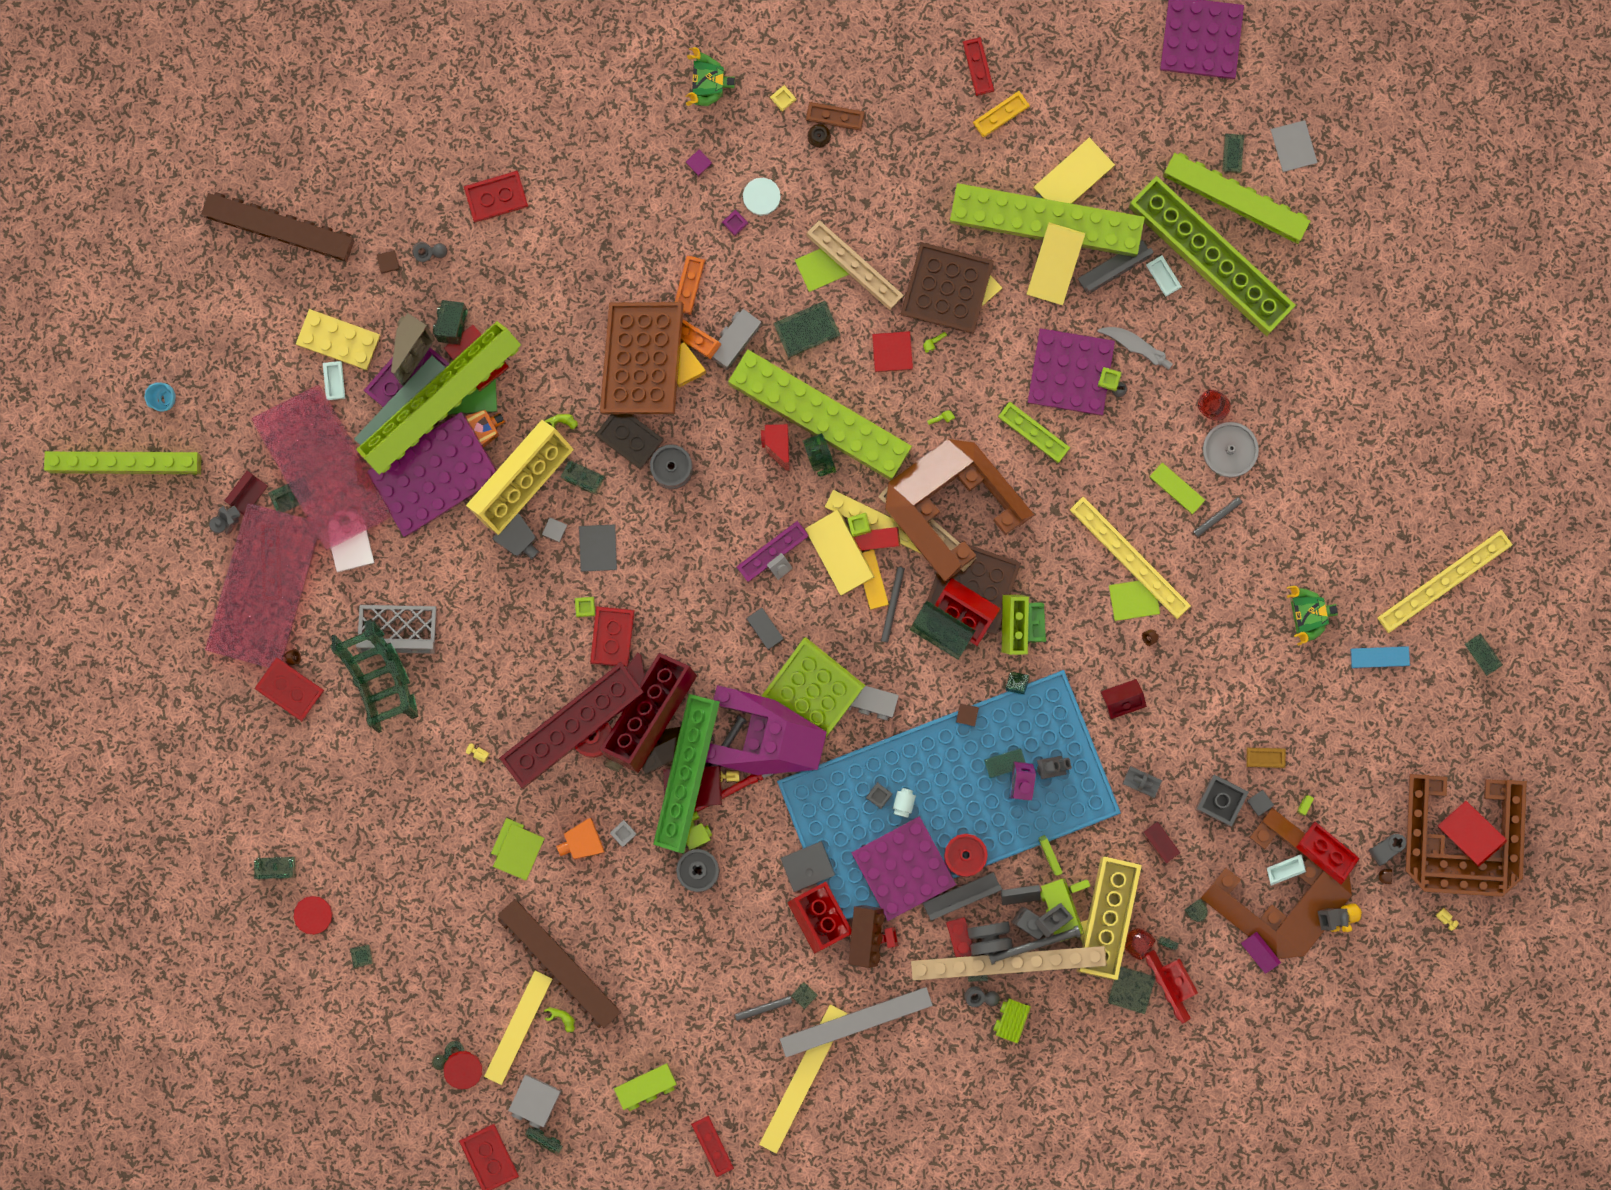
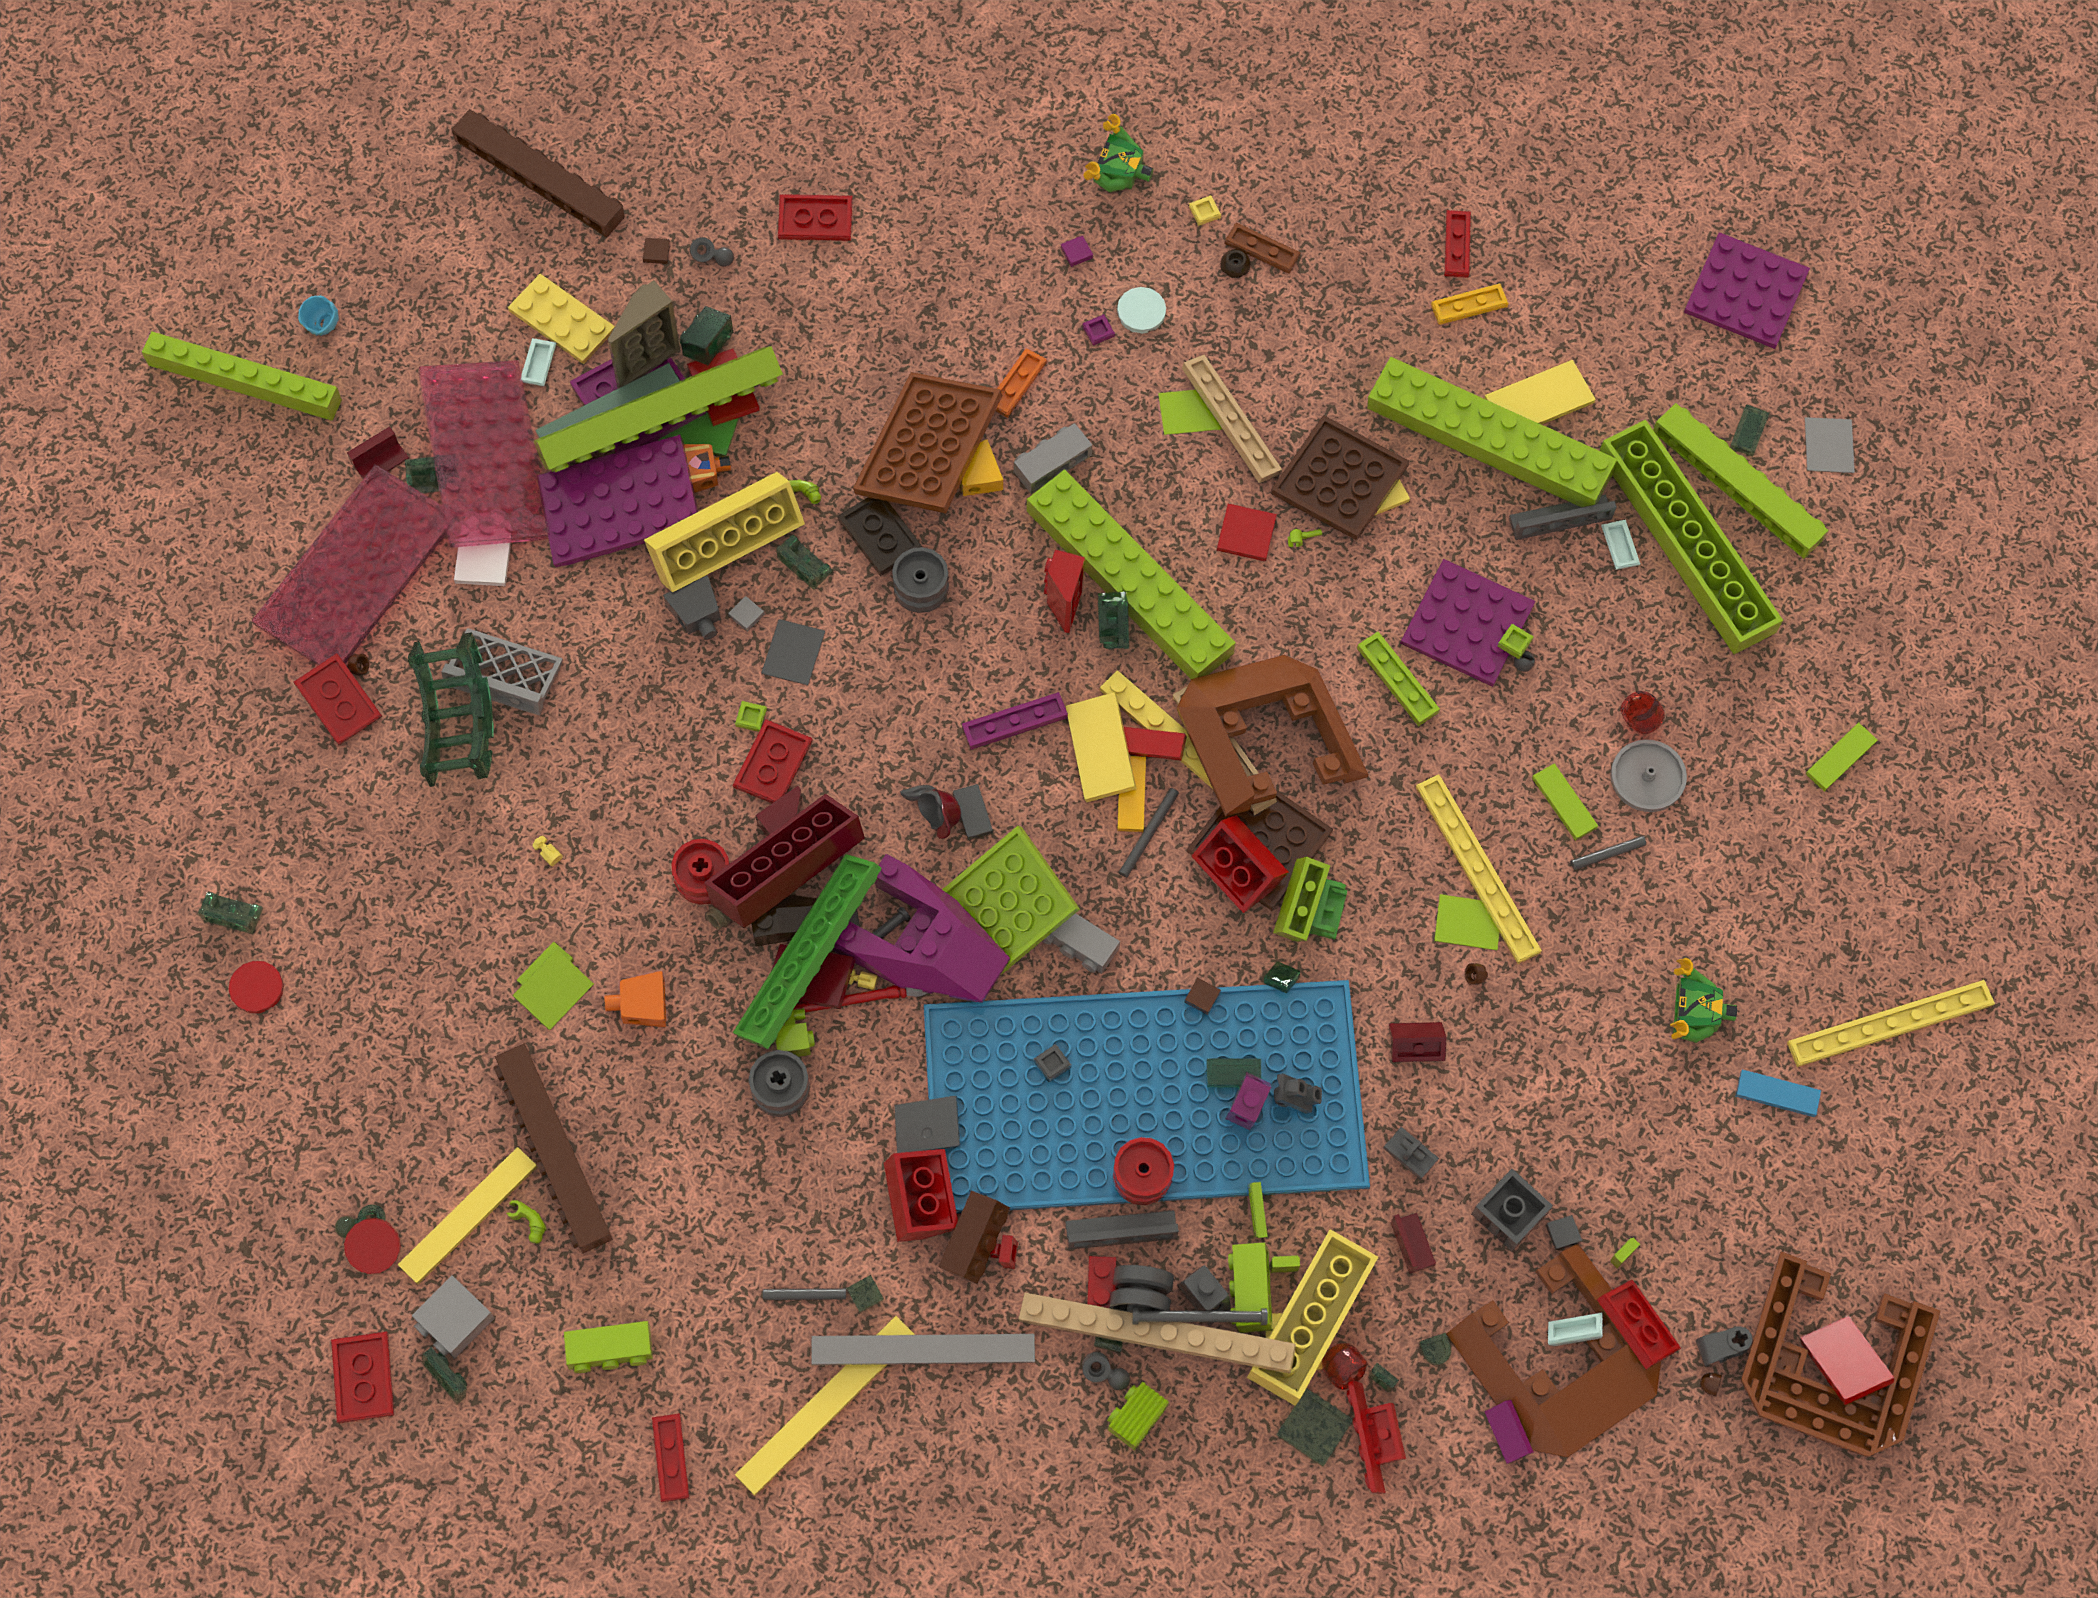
camera: 10 degrees right, 15 degrees down
(224, 520) = (341, 475): dark grey hips -> none
(361, 956) = (298, 1058): clear green tile -> none
(571, 725) = (679, 843): dark red plate -> none
(623, 833) = (698, 1008): light grey plate -> none
(699, 340) = (1006, 443): orange tile -> none
(739, 634) = (936, 807): none -> hair
(779, 566) = (1017, 740): light grey plate -> none
(806, 329) = (1146, 475): clear green tile -> none
(859, 524) = (1137, 718): lime tile -> none
(903, 868) = (1054, 1167): magenta plate -> none
(904, 803) = (1082, 1080): light aqua brick -> none
(942, 630) = (1203, 879): clear green tile -> none
(947, 416) = (1291, 625): lime hand -> none
(1020, 895) = (1201, 1251): dark grey tile -> none
(1053, 920) = (1236, 1288): dark grey plate -> none
(1055, 263) = (1487, 484): light yellow tile -> none
(1137, 345) = (1563, 616): light grey sword -> none
(1266, 757) = (1587, 1175): pearl gold tile -> none
(1334, 918) = (1626, 1411): dark grey piece -> none
(1362, 392) = (1841, 757): none -> lime tile
(1445, 917) = (1780, 1466): light yellow piece -> none
(1483, 654) = (1922, 1129): clear green hinge -> none

